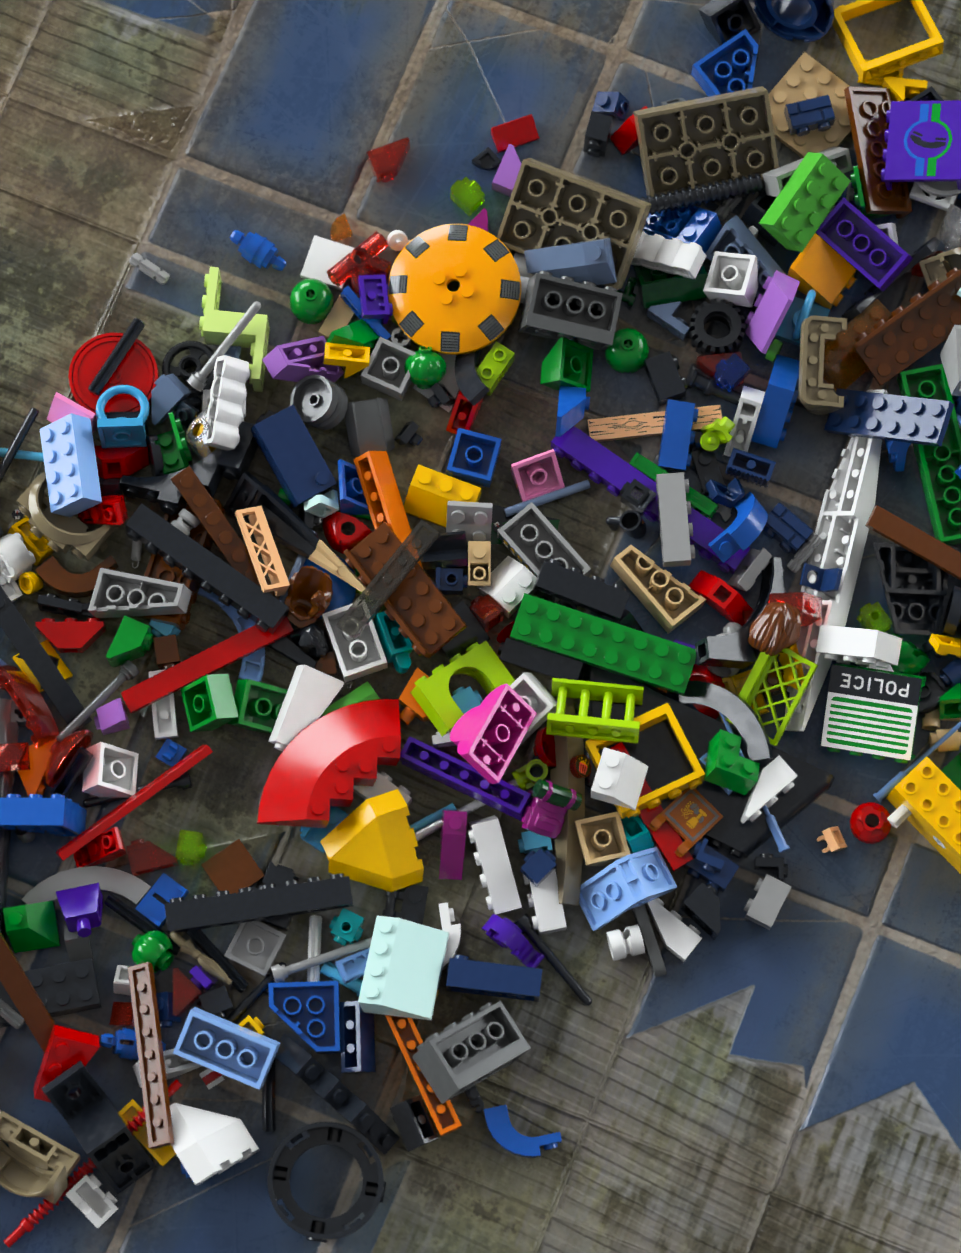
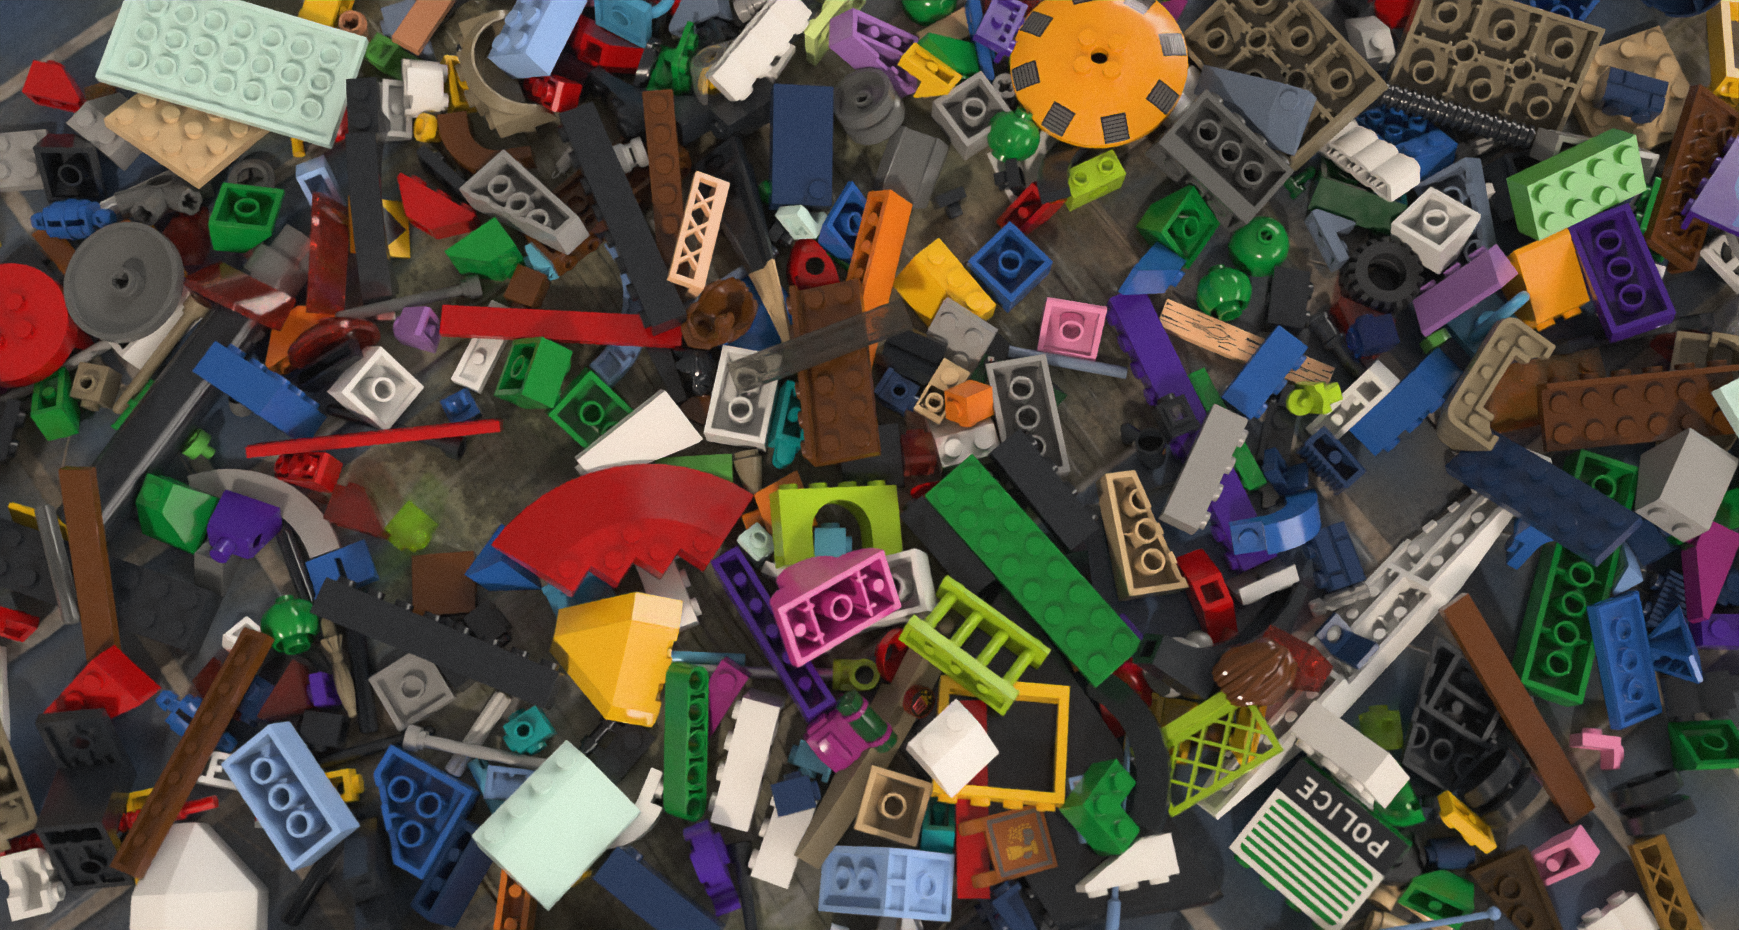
camera: 30 degrees right, 0 degrees up
(16, 875) = (197, 445): none -> bright green tile
(264, 839) = (499, 572): none -> blue slope
(385, 685) = (749, 469): none -> dark tan cone
(419, 728) = (756, 545): none -> light aqua bracket
(450, 874) = (685, 740): none -> green beam
(501, 561) = (968, 403): none -> orange brick
(621, 395) = (1223, 292): none -> green plant
(622, 170) = (1371, 40): none -> white slope

